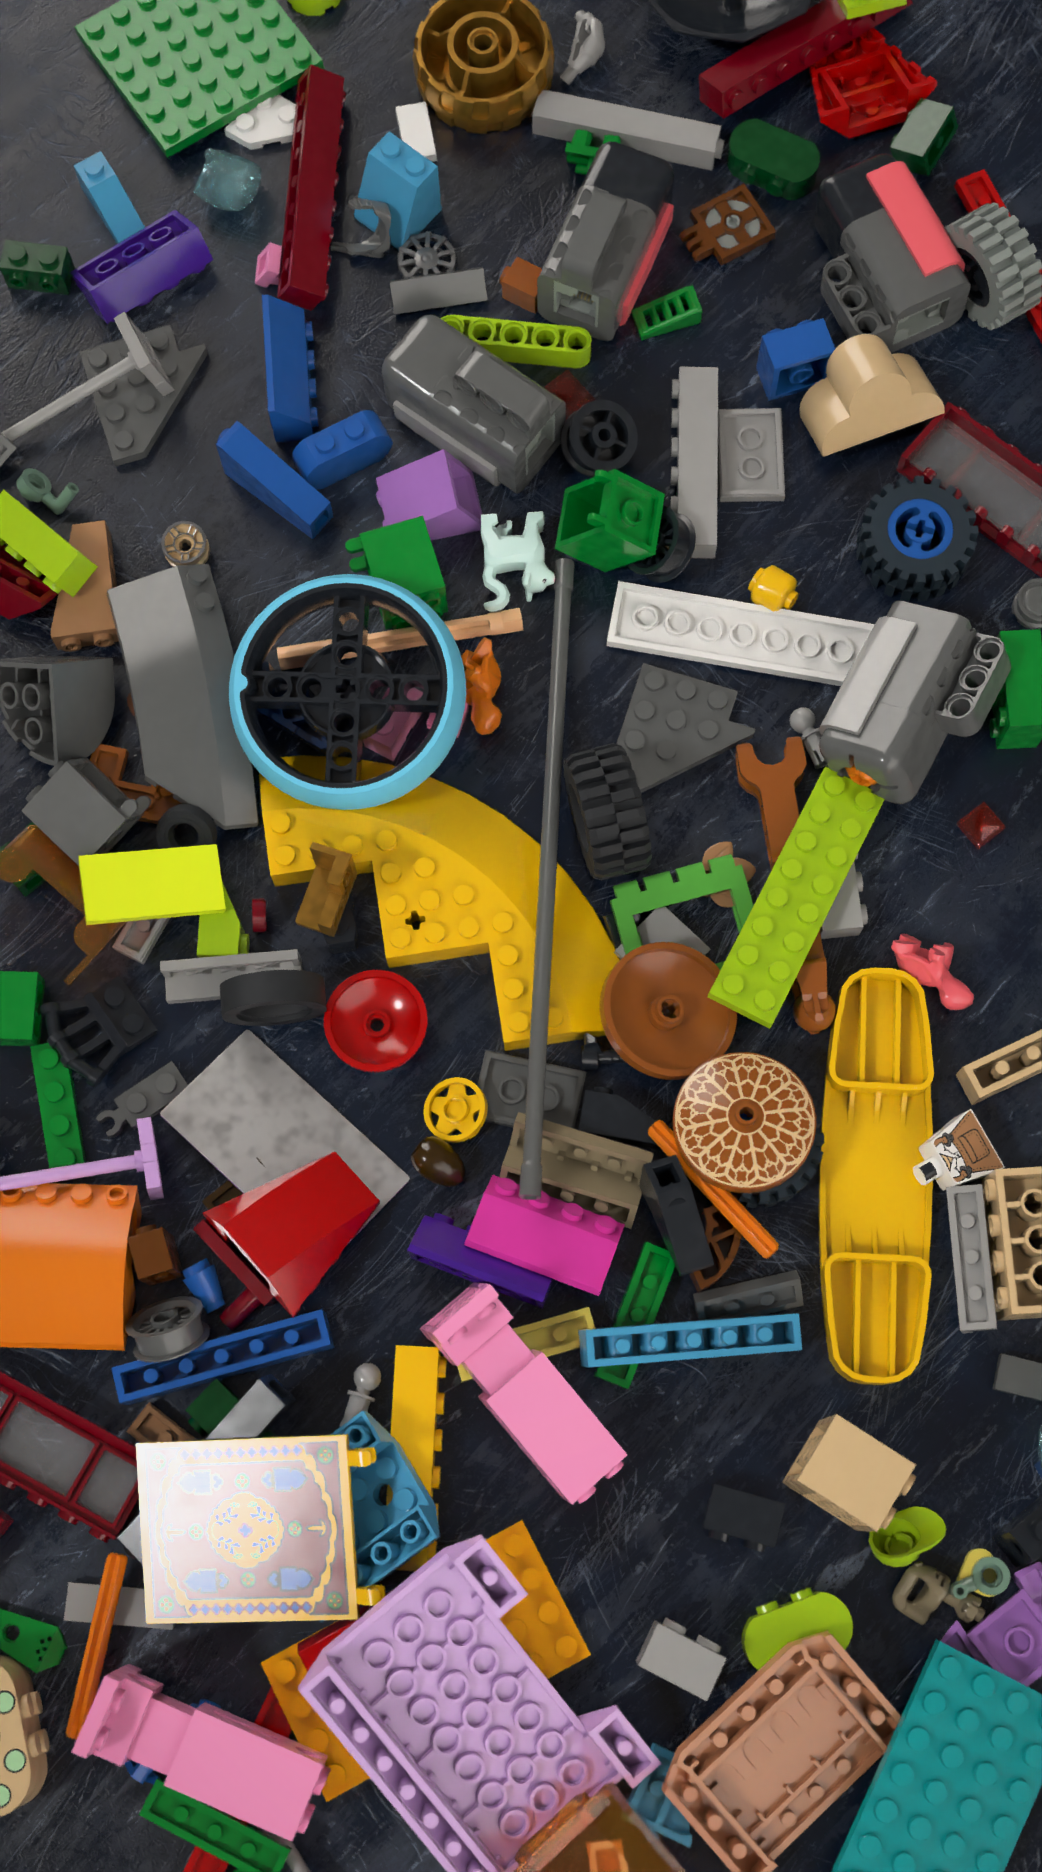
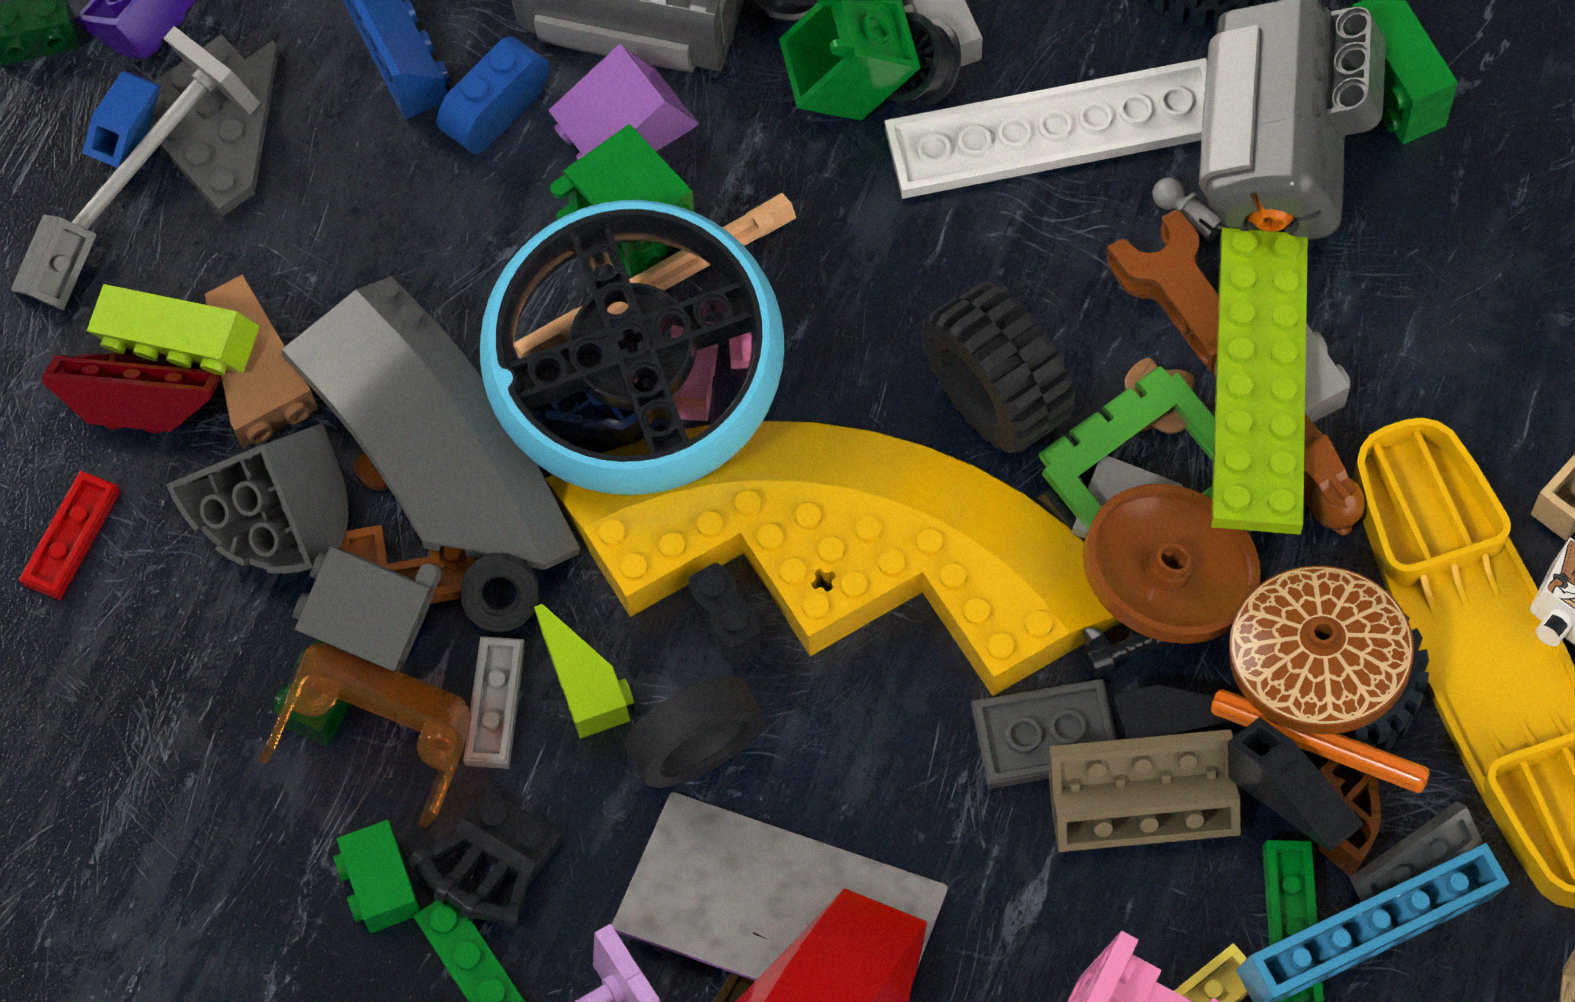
camera: 20 degrees left, 10 degrees down
(37, 487) = (138, 272): sand green plate -> none
(68, 365) = (121, 119): none -> blue slope
(145, 1099) = (587, 912): dark grey plate -> none
(151, 884) = (488, 658): neon yellow tile -> none
(182, 533) = (348, 256): tan wheel -> none
(201, 977) = (597, 747): light grey fence -> none
(259, 914) = (628, 653): dark red tile -> none
(272, 480) = (424, 158): blue slope -> none
(327, 890) = (705, 577): pearl gold panel -> none
(372, 998) = (824, 689): red dish -> none
(438, 1162) = (975, 850): dark brown animal -> none
(443, 1248) = (1068, 940): dark purple slope -> none
(455, 1110) = (968, 782): yellow wheel -> none
(482, 682) = (798, 322): orange animal -> none
(512, 553) = (747, 135): light aqua animal -> none
(531, 1167) = (1098, 795): dark grey piece -> none
(545, 1235) = (1145, 875): dark pink slope -> none
(677, 725) = (1029, 245): dark grey wing -> none
(773, 589) = (1068, 62): yellow head -> none
(931, 970) = (1452, 408): coral animal -> none
(981, 825) = (1426, 231): clear red tile -> none

